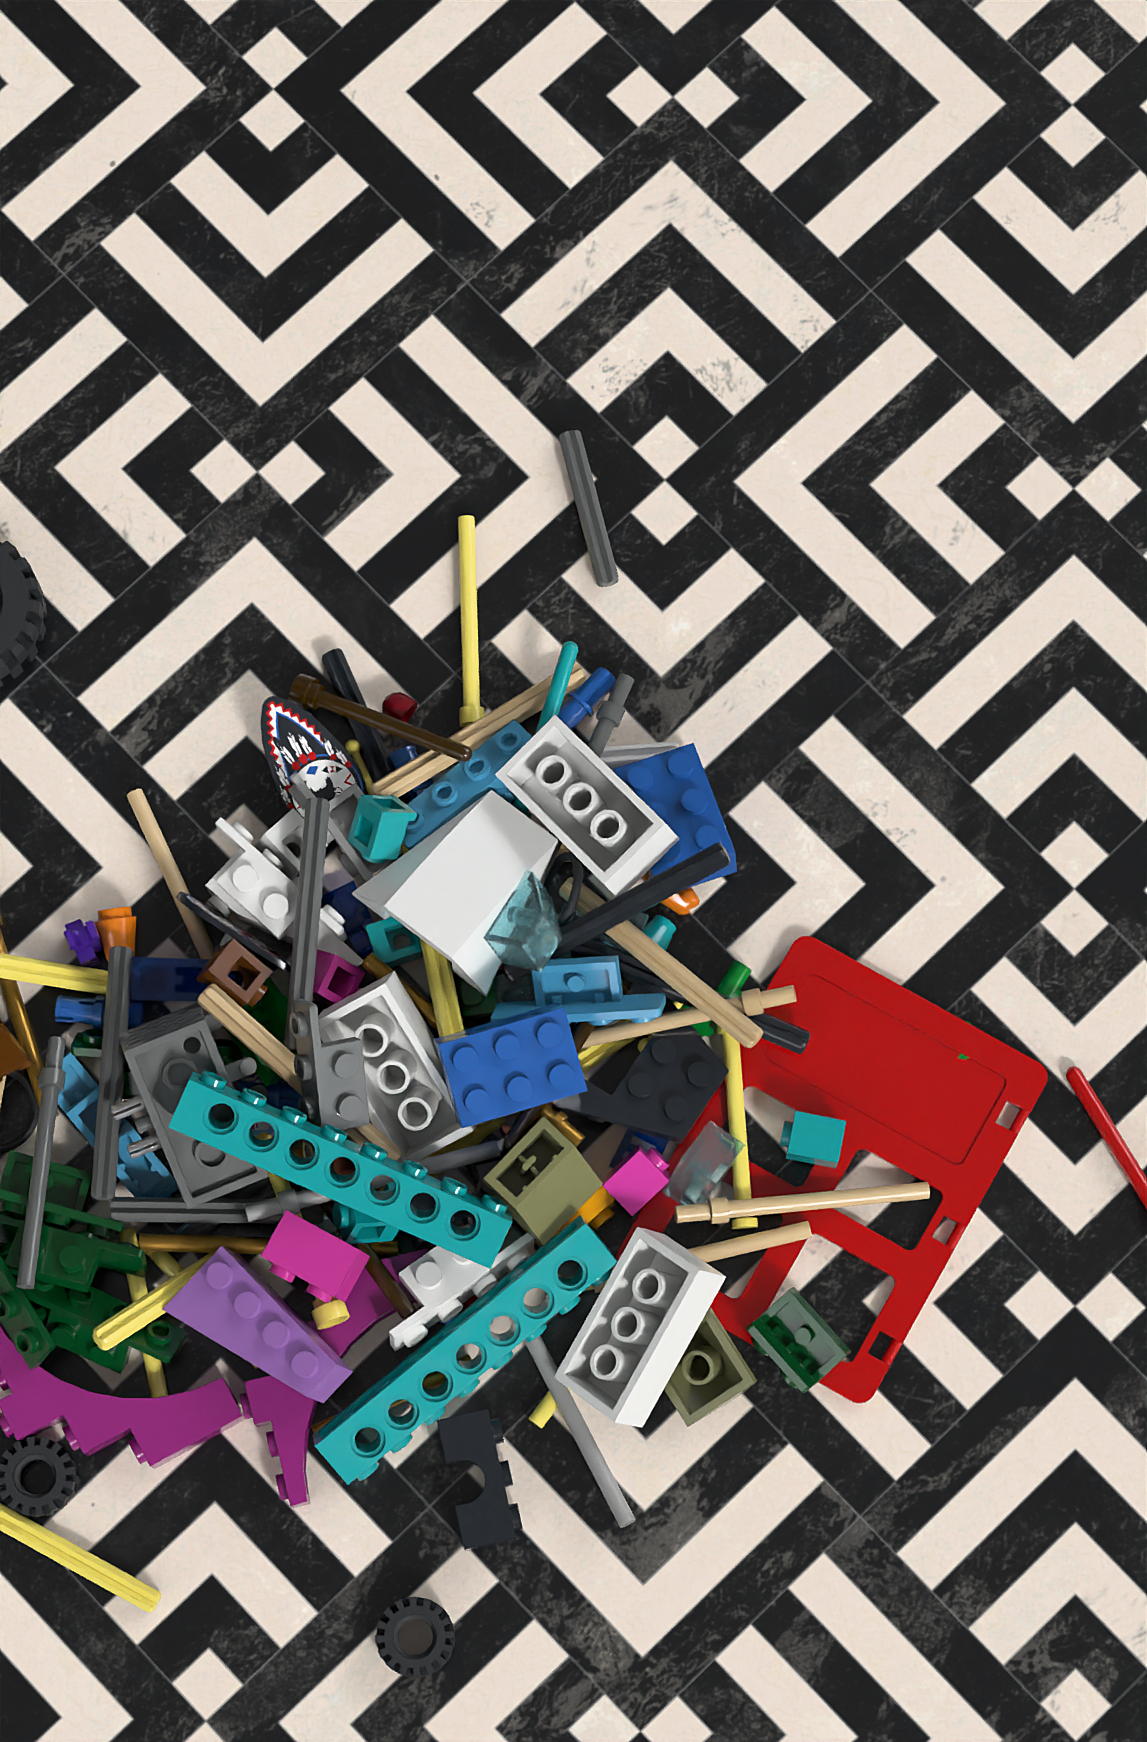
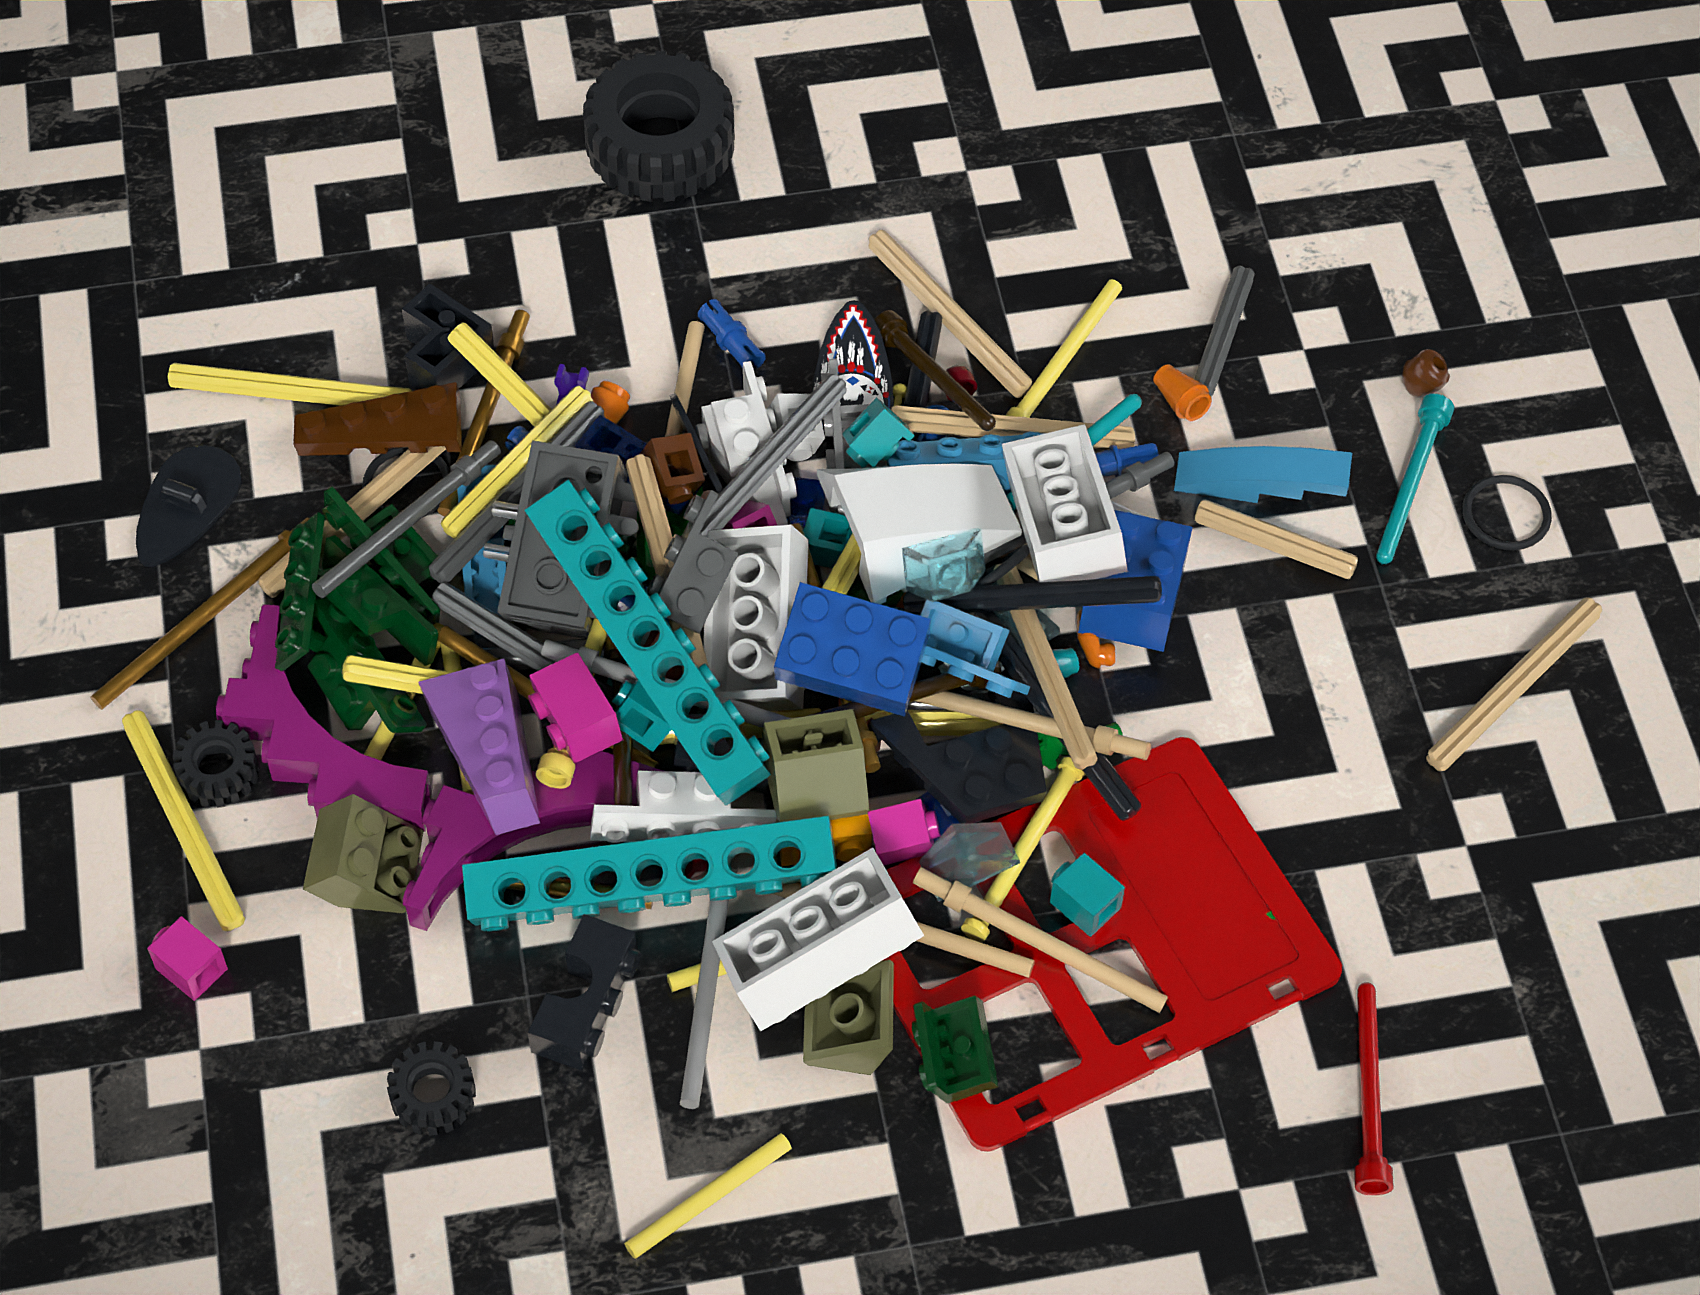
camera: 30 degrees right, 20 degrees down
(90, 1047) = (513, 463): none -> light yellow axle
(143, 1659) = (187, 958): none -> dark pink brick
(172, 784) = (730, 334): none -> blue pin
(219, 1481) = (362, 856): none -> olive slope
(347, 640) = (953, 316): none -> tan axle
(595, 598) = (1184, 394): none -> orange cone
(685, 1579) = (707, 1196): none -> light yellow bar
(711, 640) = (1266, 470): none -> dark azure slope
(758, 695) = (1276, 539): none -> tan axle
(786, 448) = (1425, 373): none -> reddish brown piece
(817, 484) = (1434, 415): none -> teal piece
(927, 581) = (1505, 545): none -> black tyre
(1030, 713) = (1513, 684): none -> tan axle

